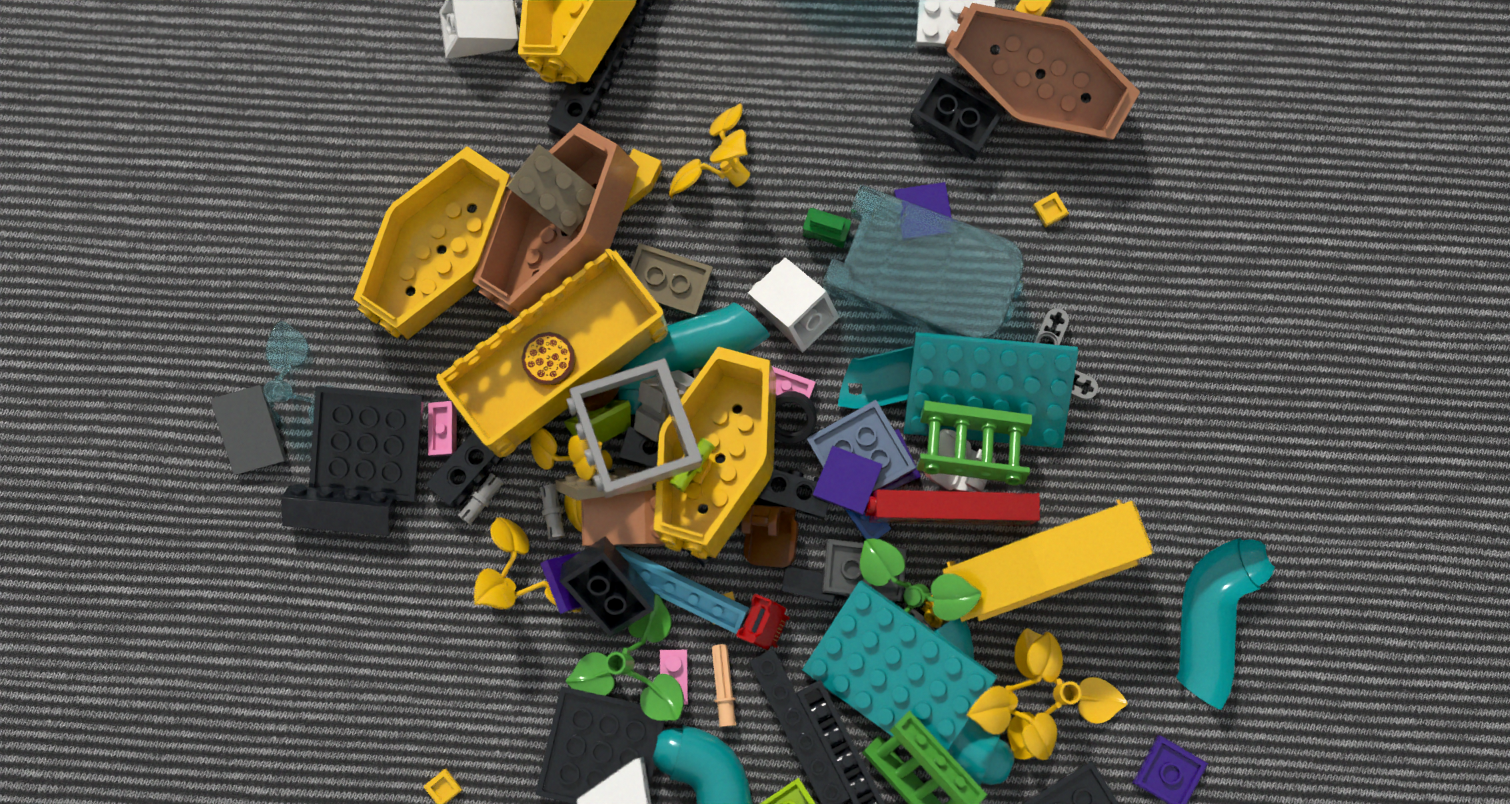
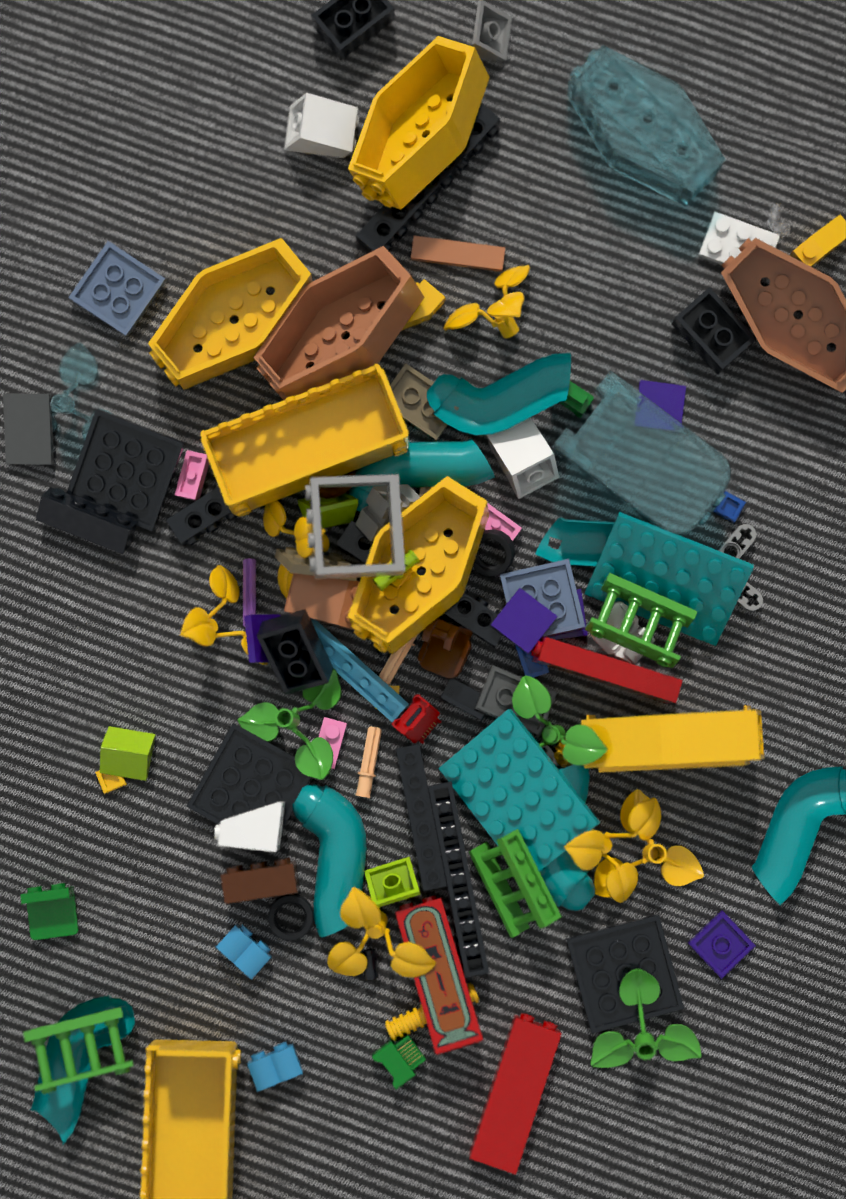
camera: 10 degrees right, 5 degrees up
(306, 253) = (117, 289): none -> sand blue plate
(452, 755) = (126, 753): none -> lime slope
(480, 499) = (208, 545): light grey pin -> none
(537, 531) = (249, 587): none -> medium lavender axle
(548, 358) = (299, 443): tile -> none
(552, 512) = (266, 574): light grey pin -> none
(553, 190) = (344, 298): dark tan plate -> none
(661, 113) = (457, 253): none -> nougat tile
(720, 566) = (395, 661): none -> light nougat axle
(756, 251) = (504, 401): none -> teal animal
(1031, 296) = (730, 507): none -> blue tile
(1050, 209) = (770, 436): yellow tile -> none

